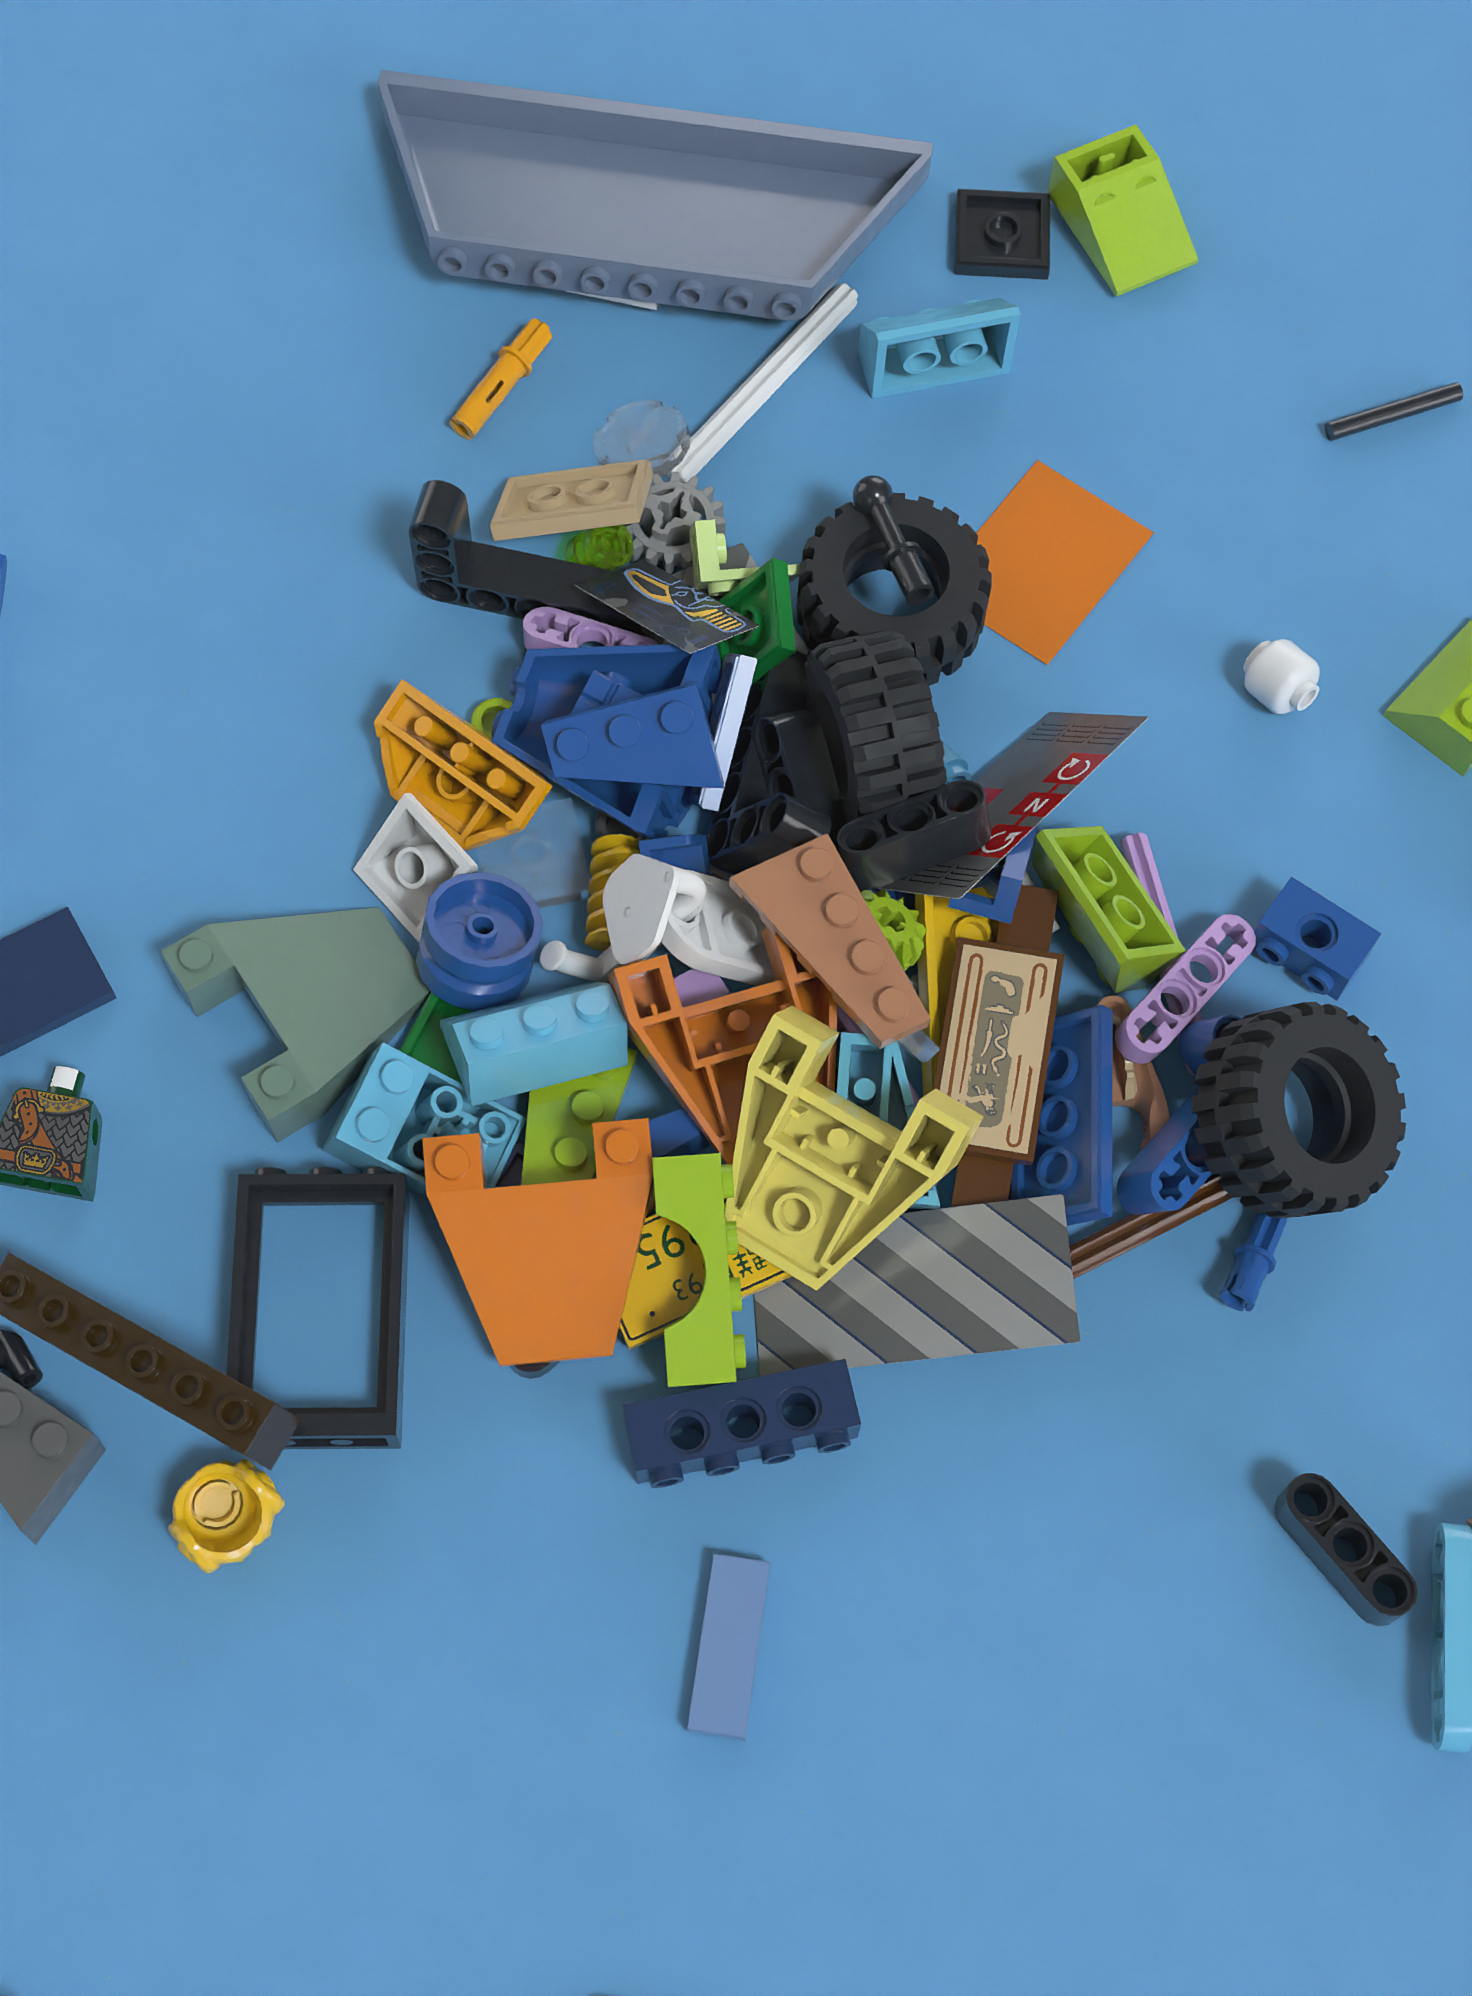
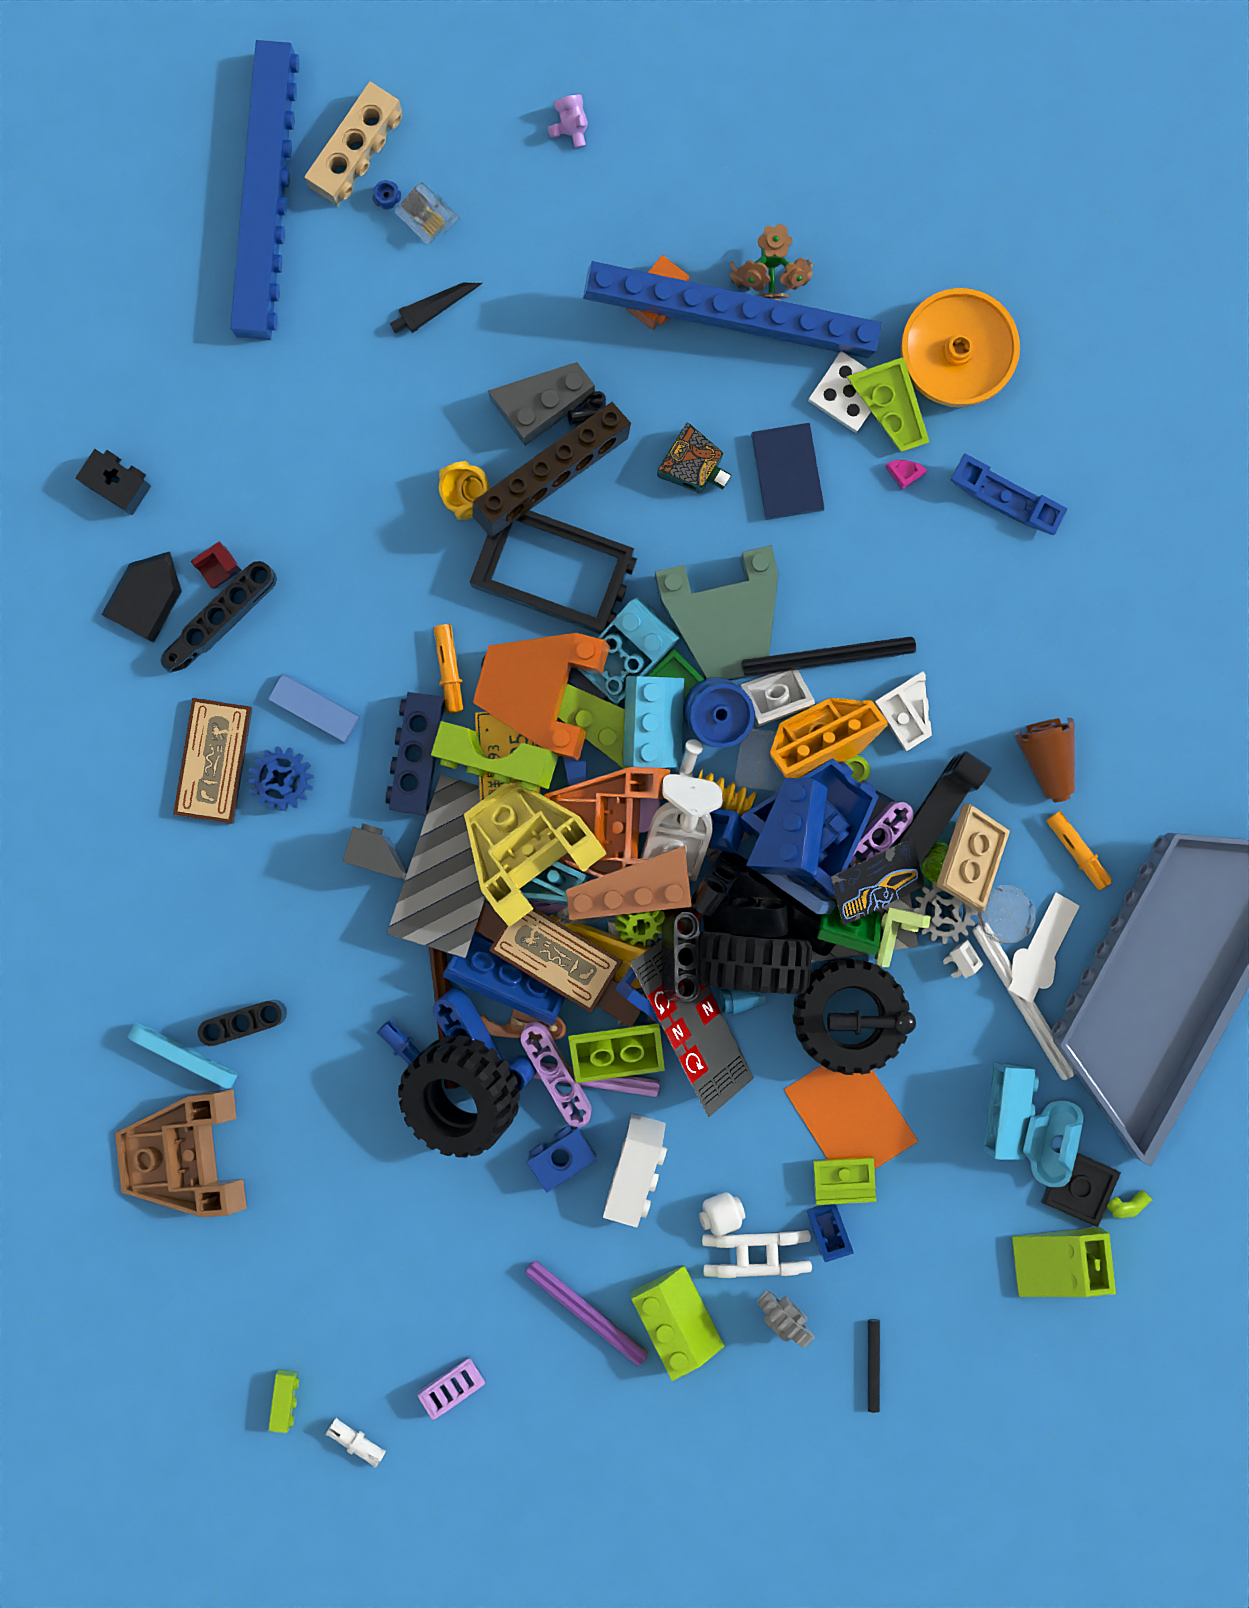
camera: 110 degrees right, 20 degrees up
(323, 820) = (828, 656): none -> black axle
(365, 451) = (1051, 756): none -> dark orange cone
(370, 672) = (907, 712): none -> white wing
(525, 1941) = (216, 565): none -> dark red panel
(564, 1426) = (448, 668): none -> light orange axle
(700, 380) = (1036, 966): none -> white sticker
(705, 1945) = (182, 646): none -> black piece
(735, 472) = (965, 958): none -> white tile
(899, 1800) = (213, 760): none -> tile
(902, 1671) = (275, 767): none -> blue gear
(949, 1421) = (374, 852): none -> dark grey slope
(989, 256) = (1057, 1119): none -> medium azure piece
(998, 160) = (1129, 1209): none -> lime arm
(1145, 529) = (844, 1180): none -> lime plate
(1236, 519) = (829, 1232): none -> blue slope
(1277, 814) = (635, 1171): none -> white wedge
(1309, 637) = (771, 1241): none -> white piece
(1393, 529) = (785, 1319): none -> light grey gear

